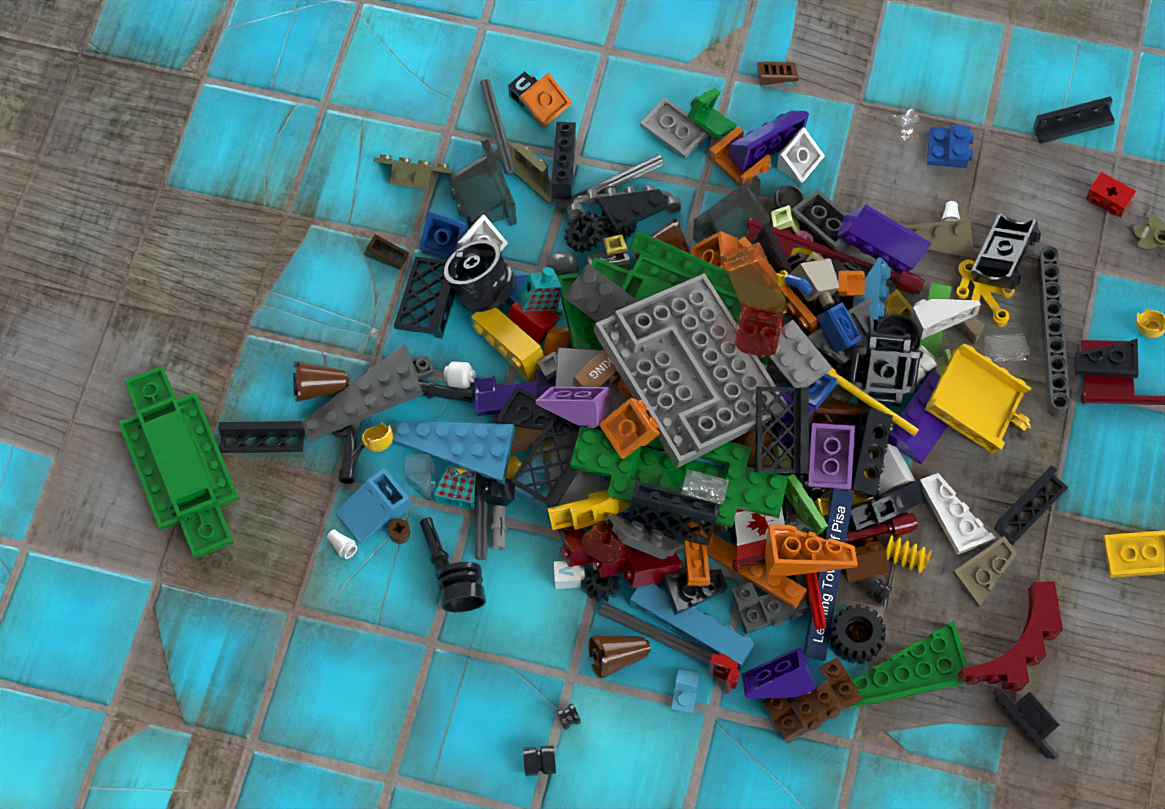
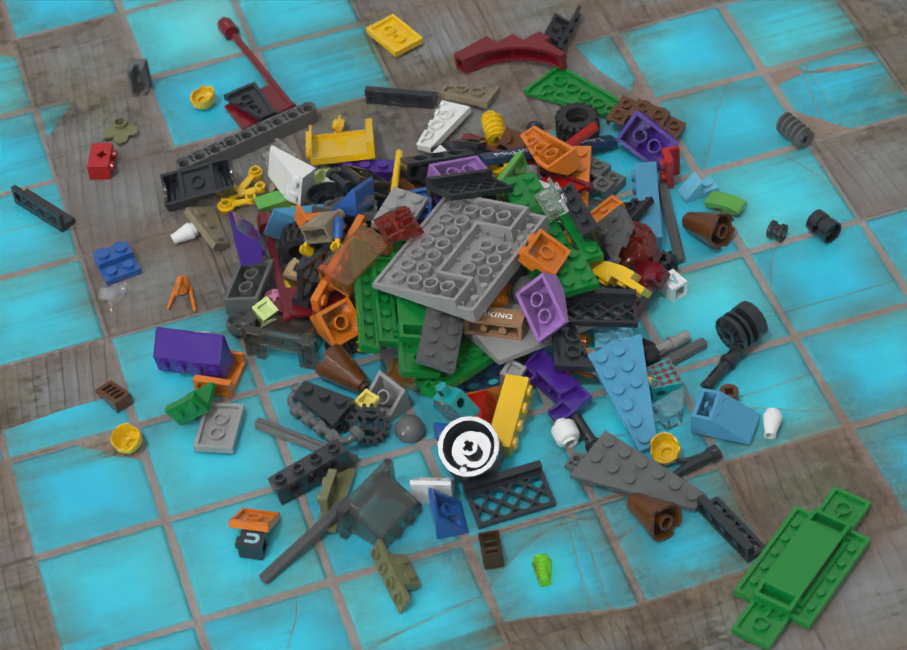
camera: 120 degrees left, 20 degrees down
(334, 274) = (542, 568): none -> clear neon green cone
(644, 699) = (726, 202): none -> bright green slope
(710, 54) = (126, 438): none -> yellow hair
(877, 180) = (181, 287): none -> orange plant

